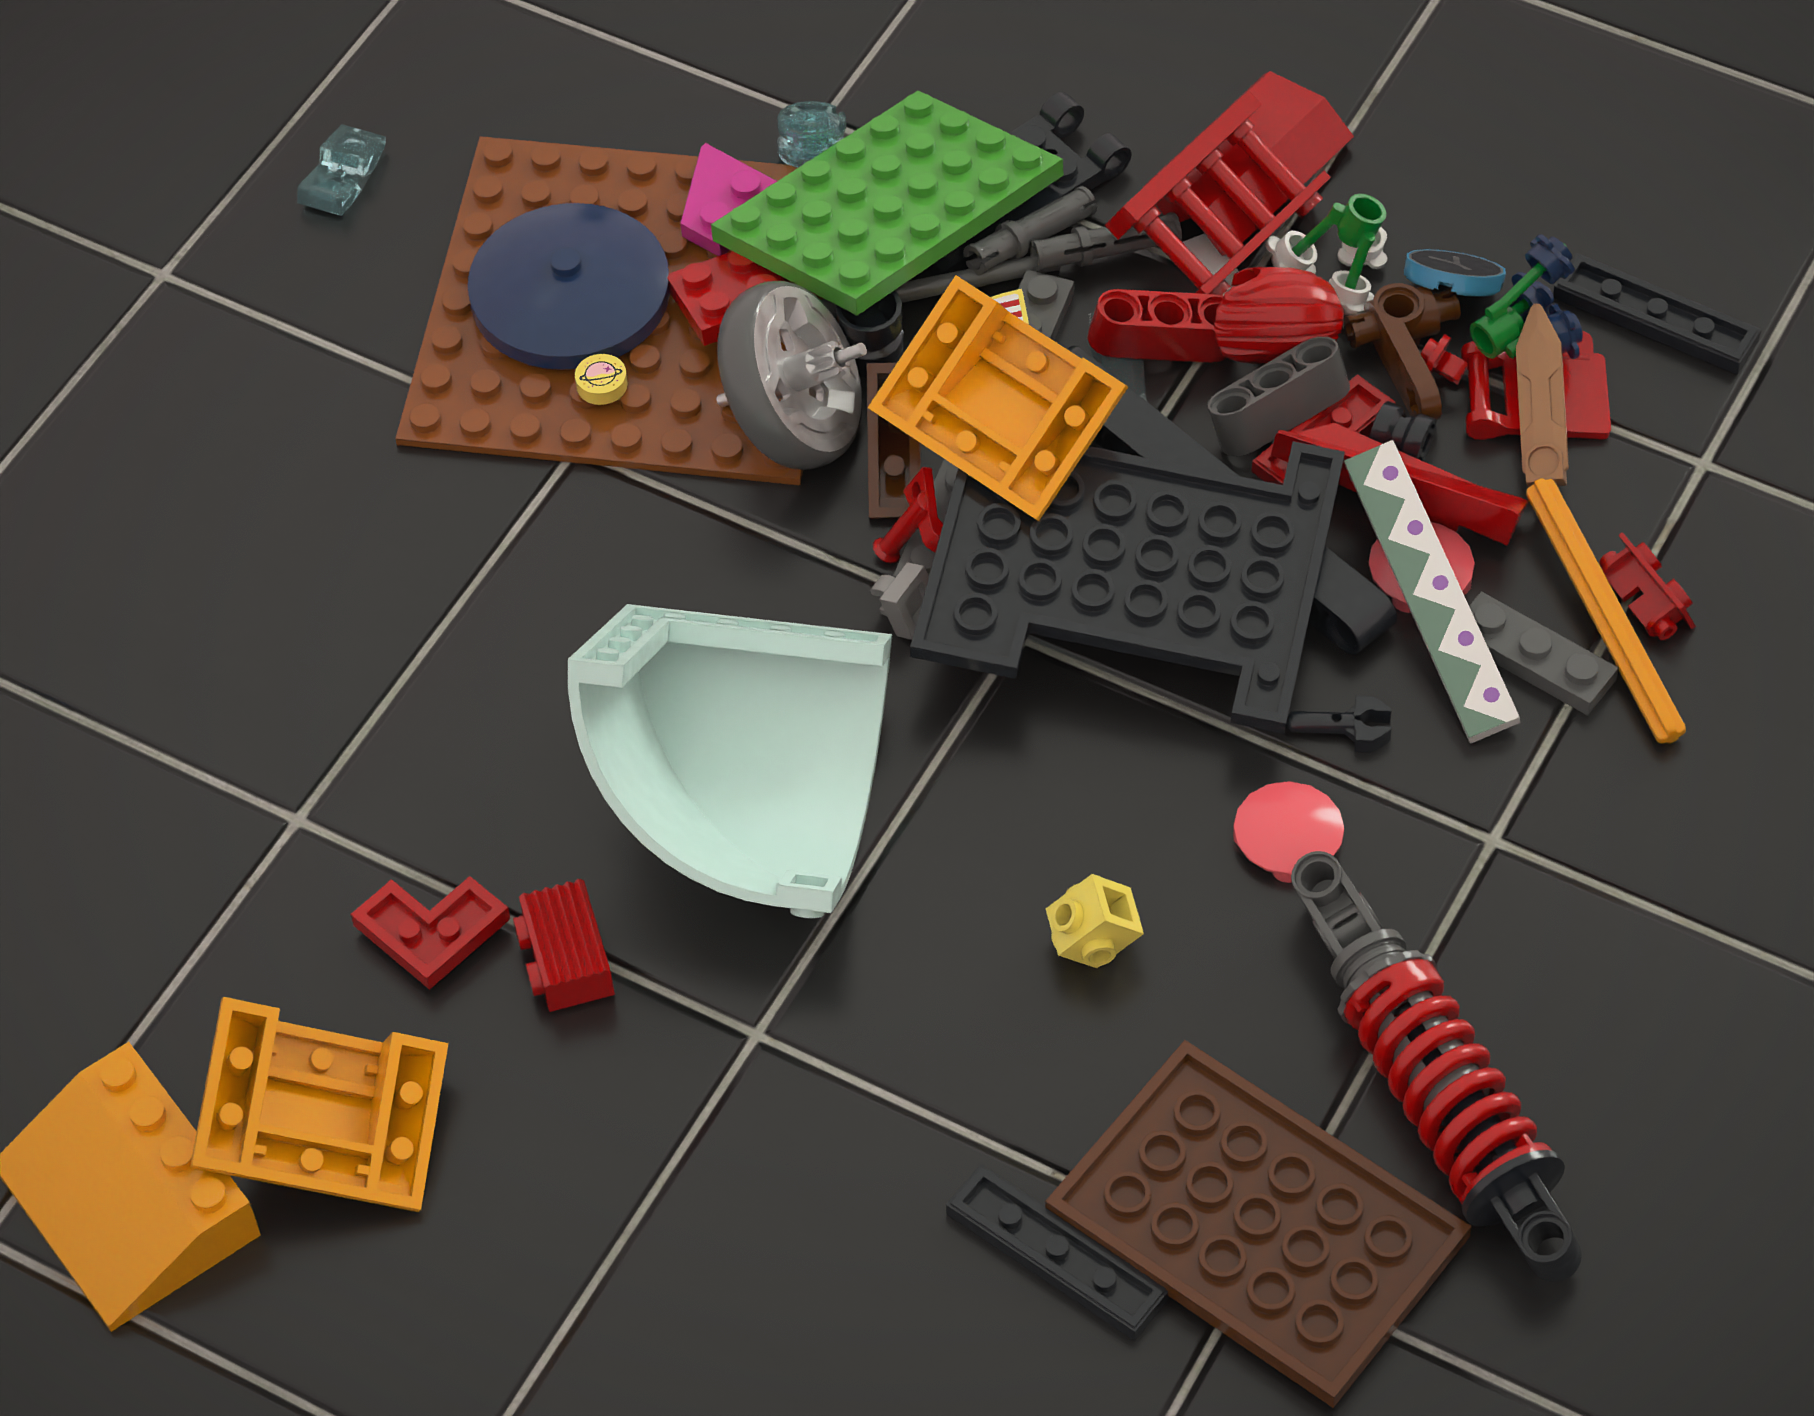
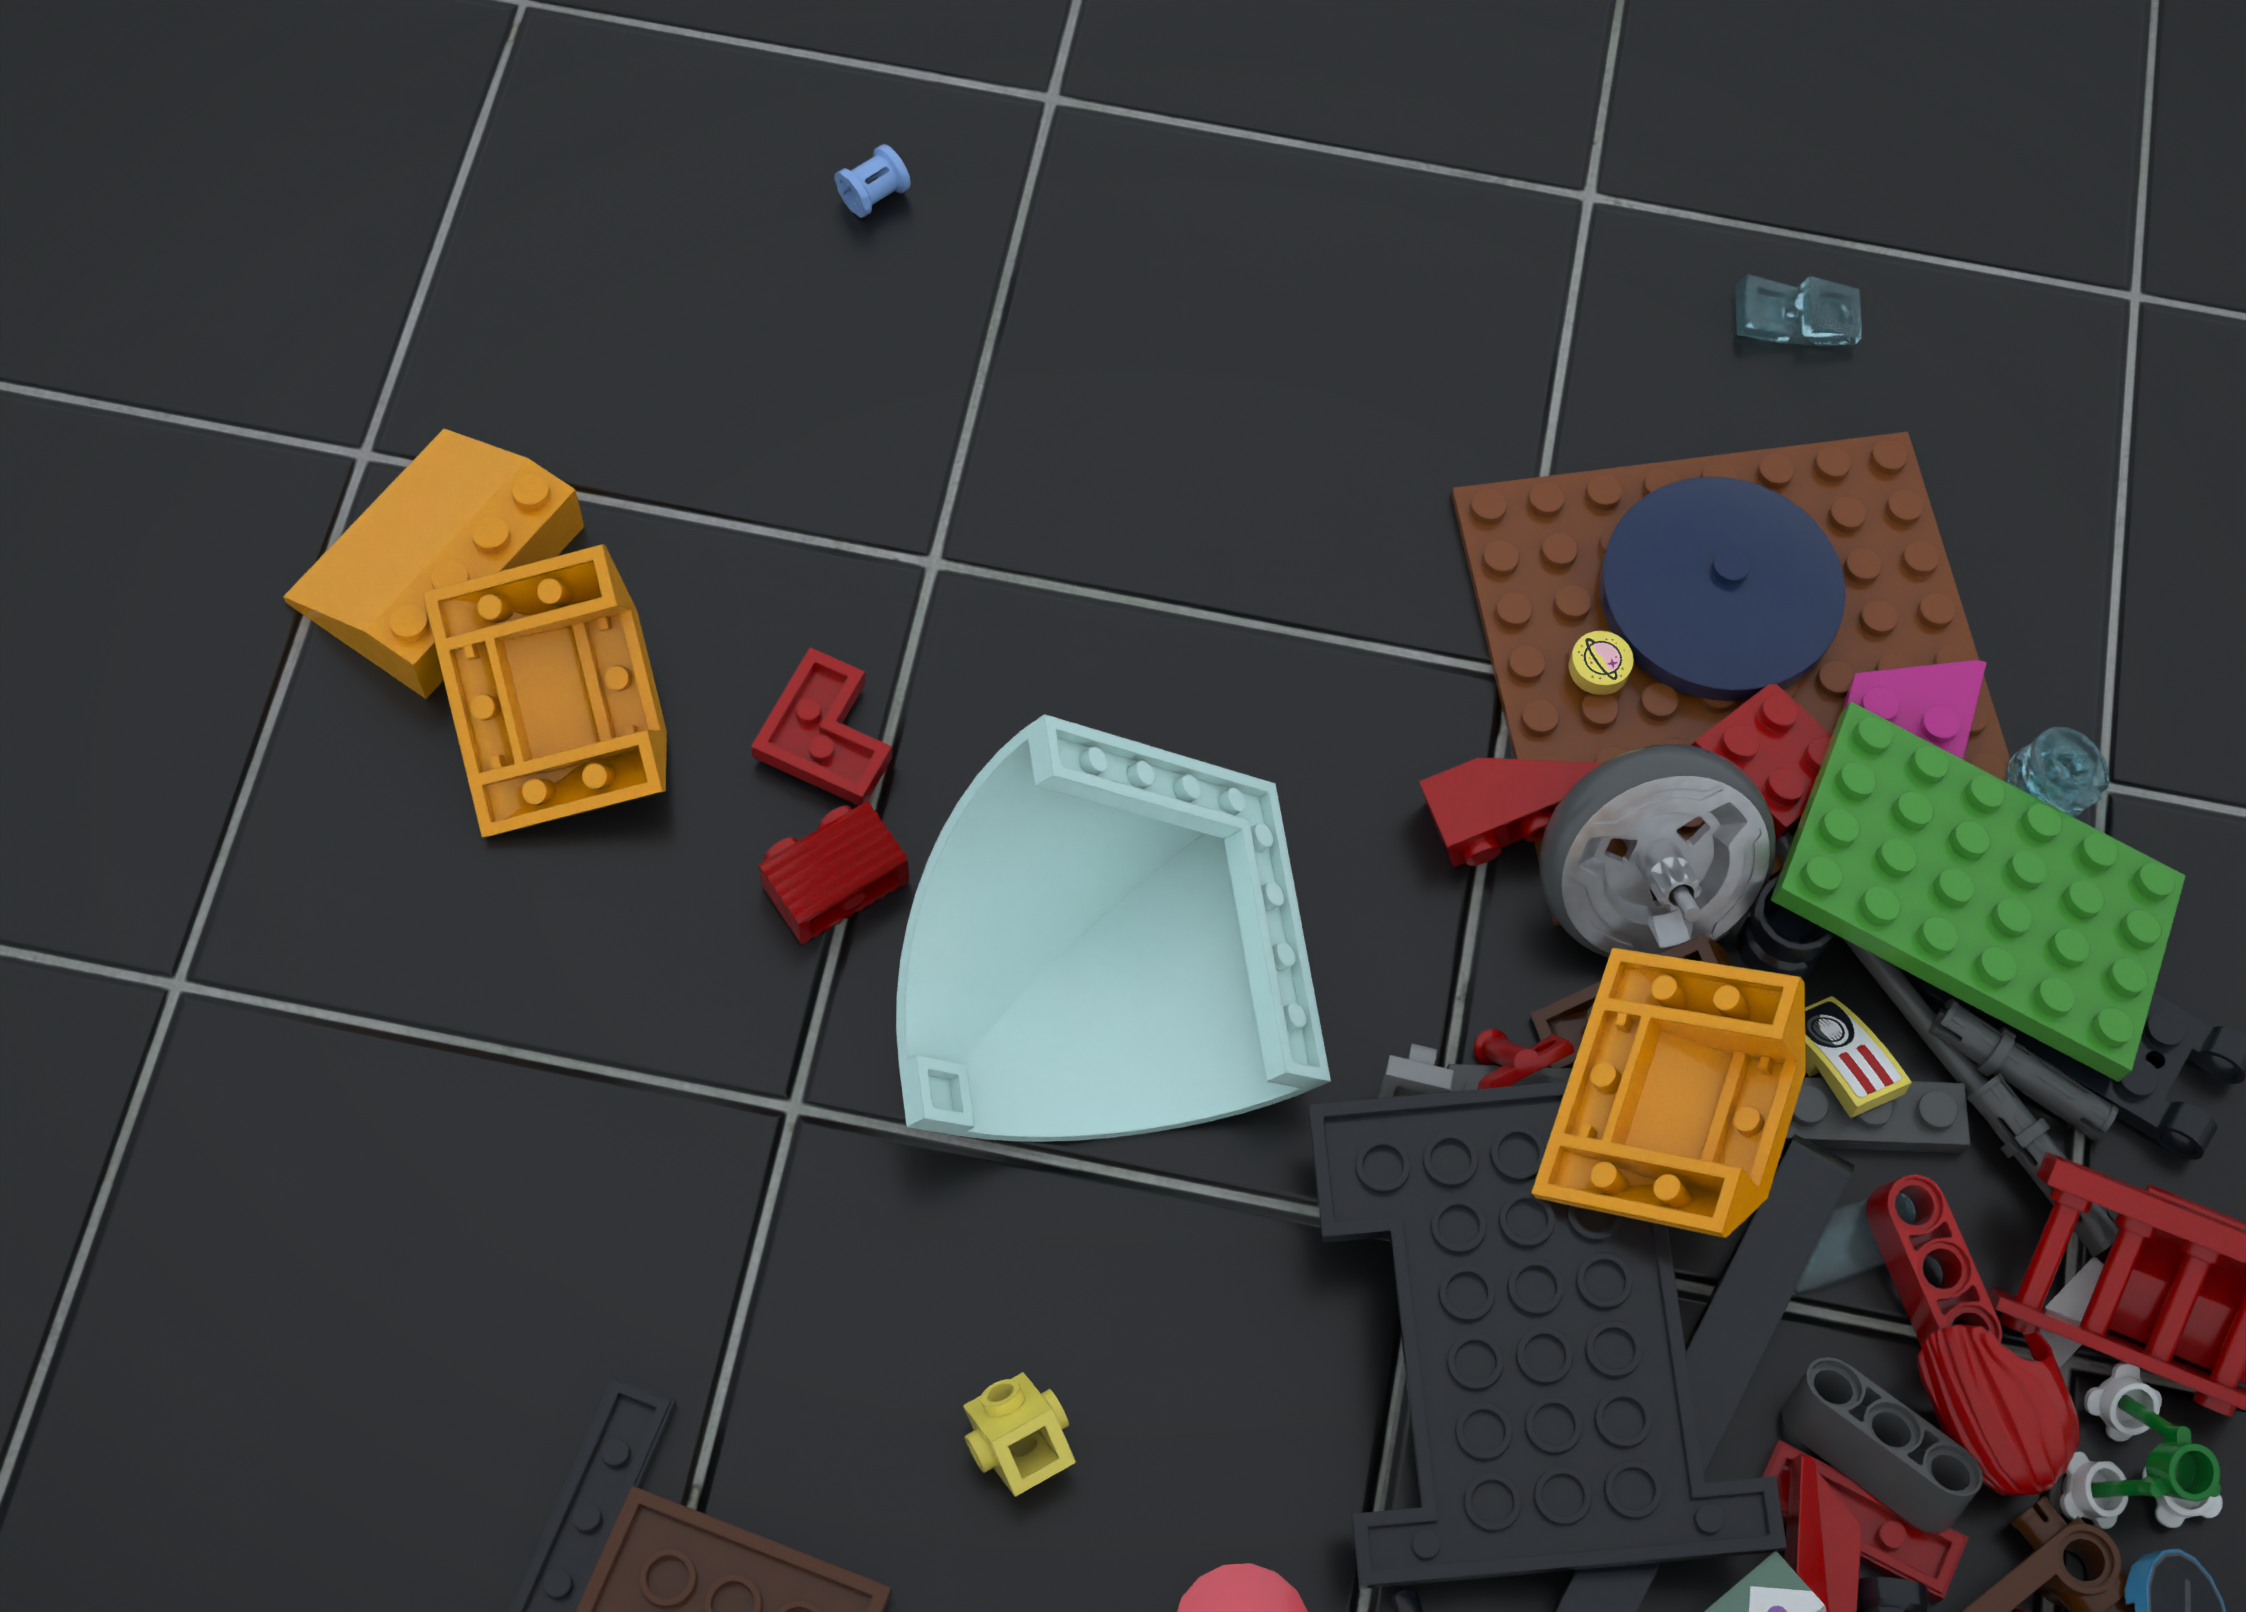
camera: 65 degrees right, 10 degrees up
(693, 472) = (1496, 803): none -> red slope

